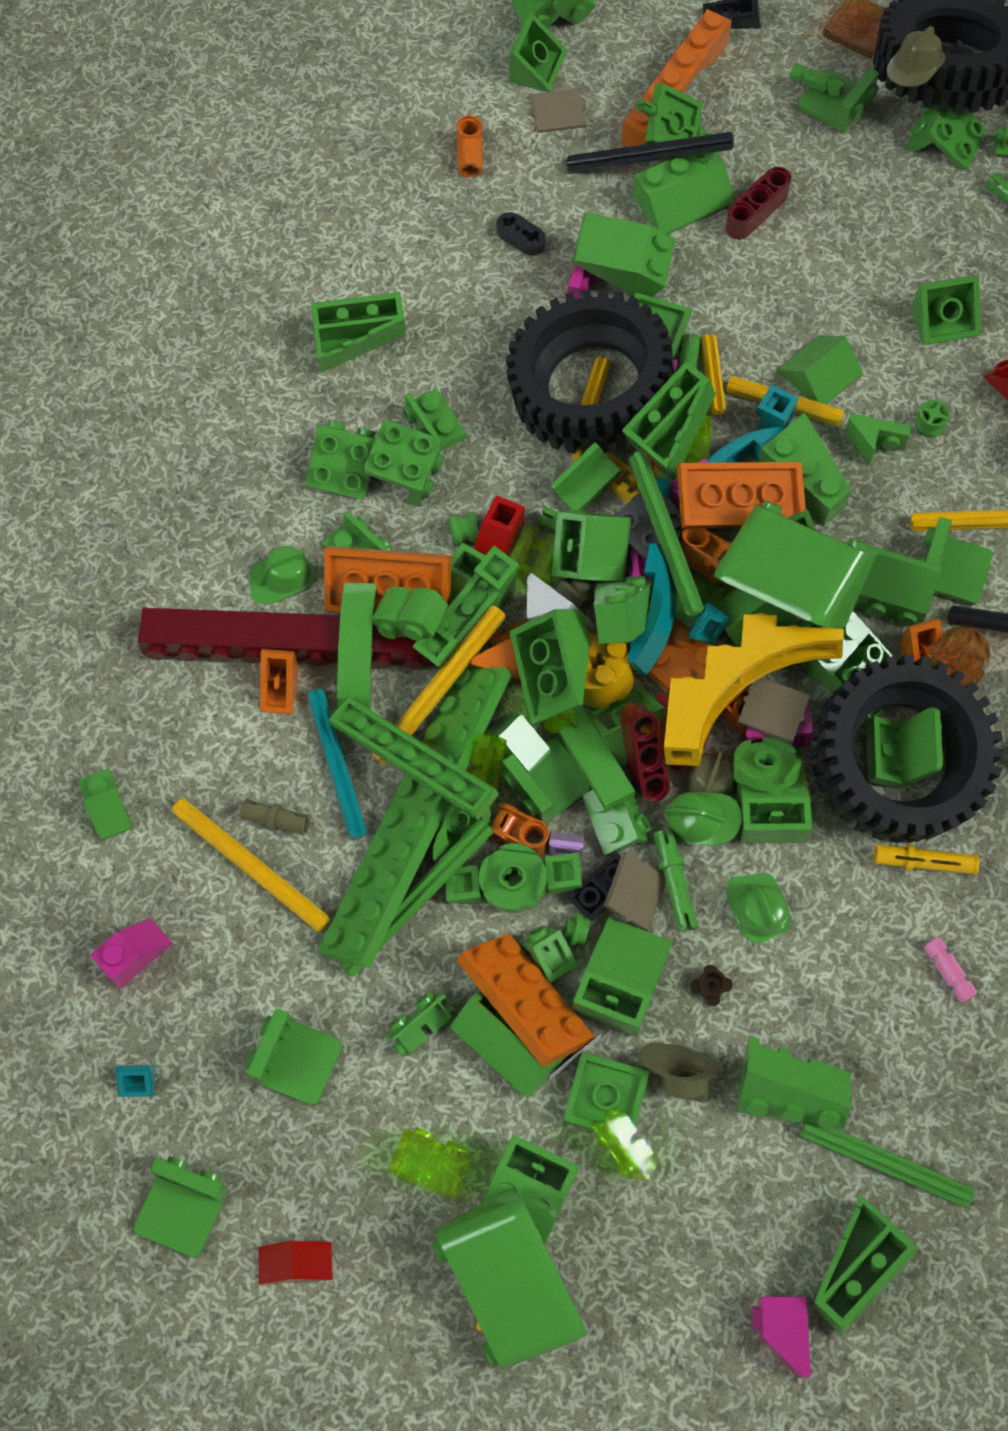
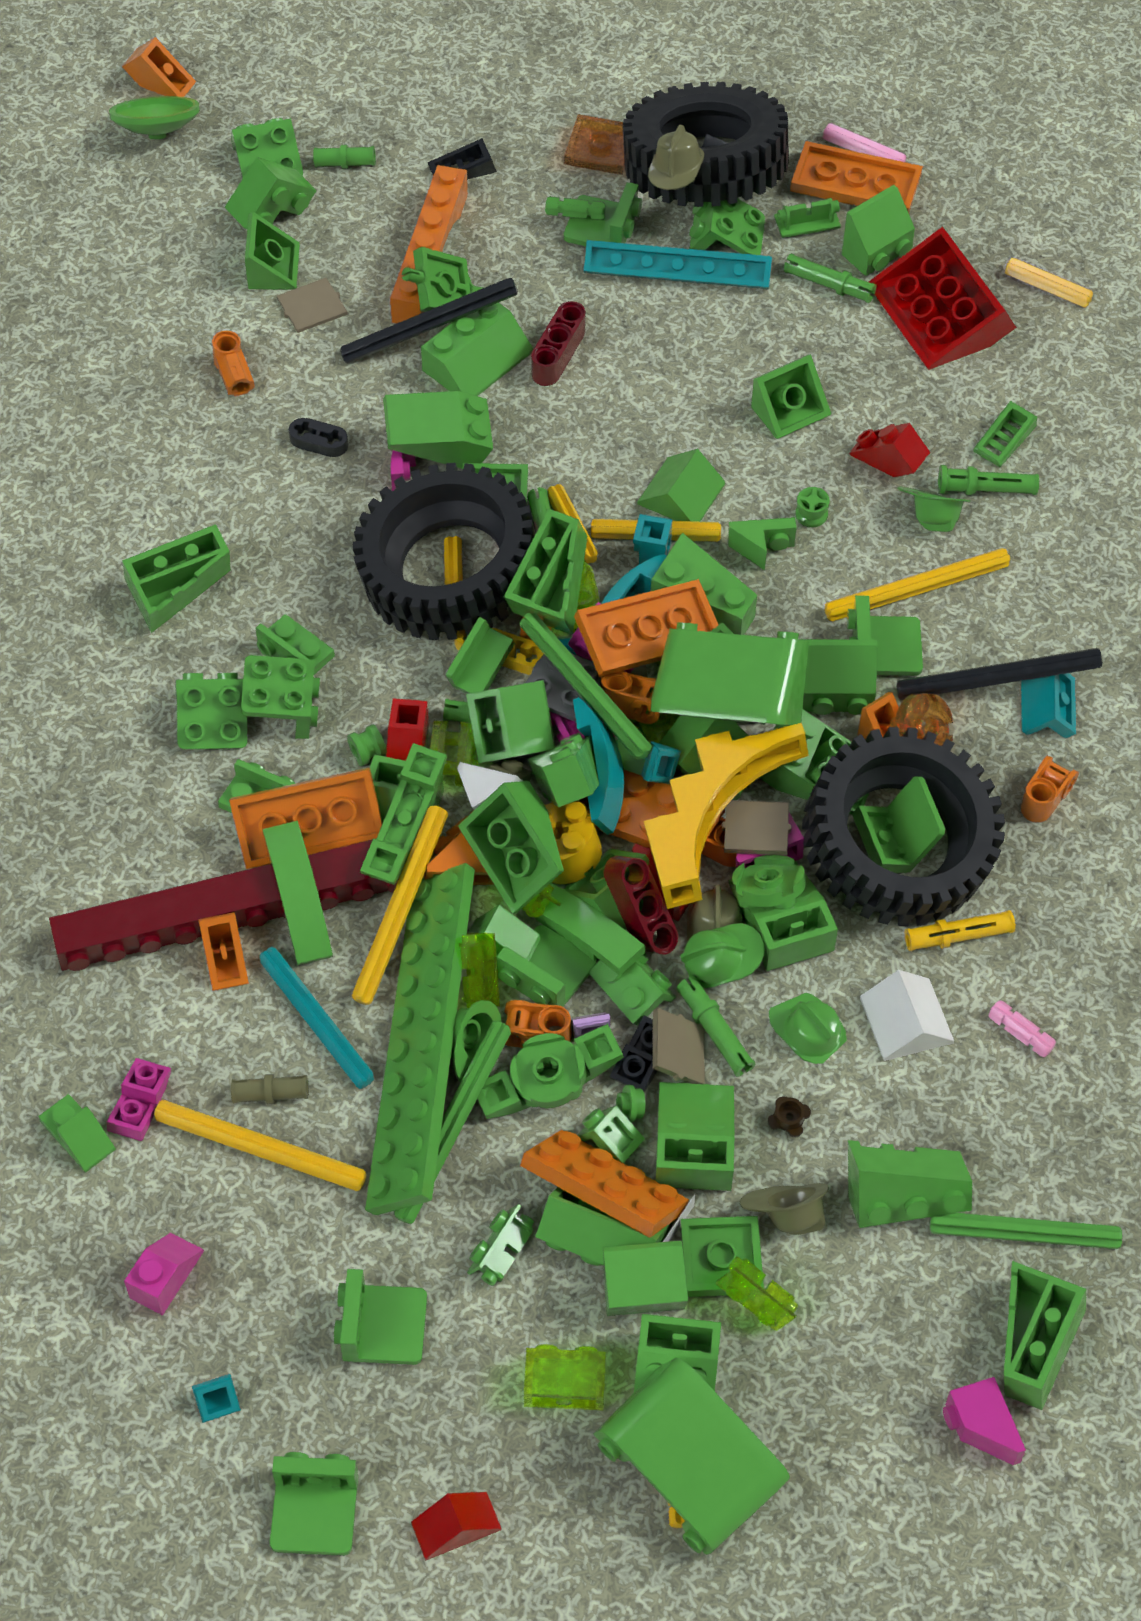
camera: 20 degrees left, 10 degrees down
(168, 786) = (139, 1098): none -> dark pink slope
(280, 575) = (184, 847): bright green piece -> none
(409, 613) = (346, 836): bright green brick -> none
(413, 758) = (401, 979): bright green tile -> none
(527, 1100) = (644, 1278): none -> bright green slope
(849, 924) = (905, 1015): none -> white slope
(891, 156) = (677, 264): none -> teal plate

